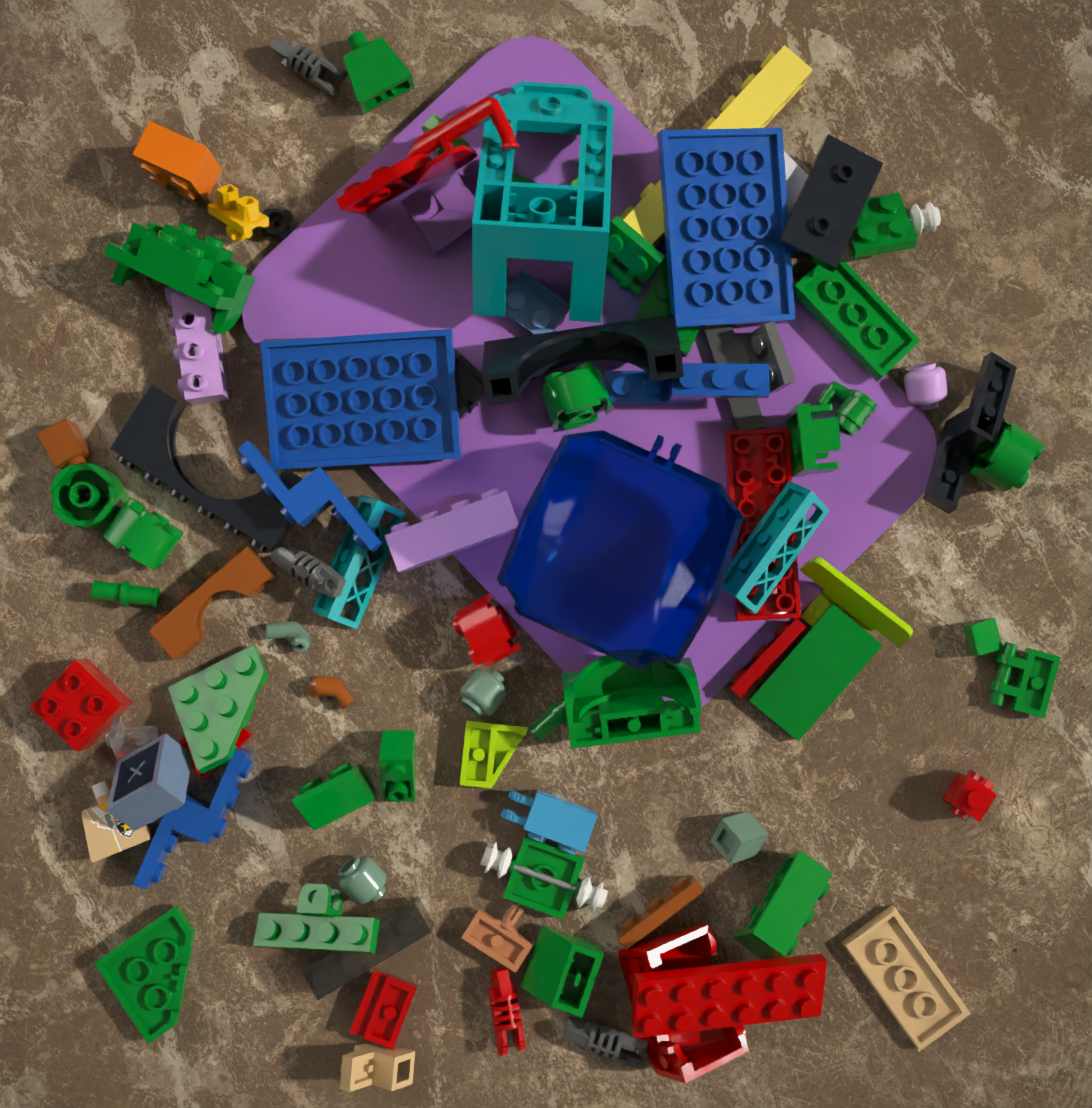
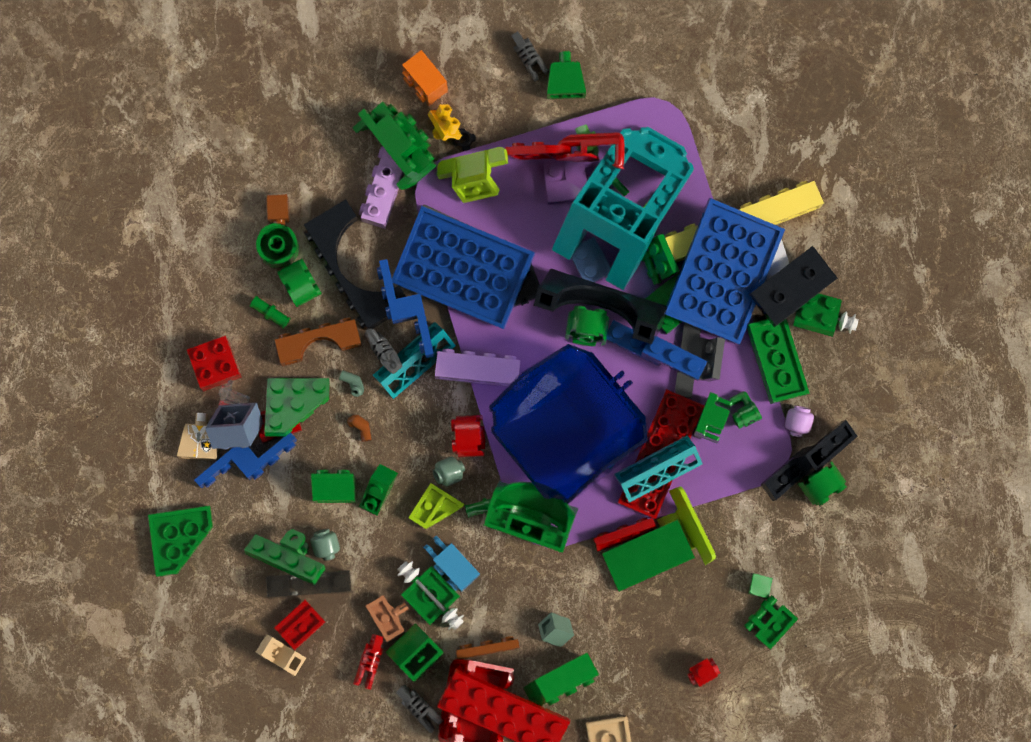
camera: 30 degrees right, 5 degrees down
(309, 262) = (472, 173): none -> lime plate

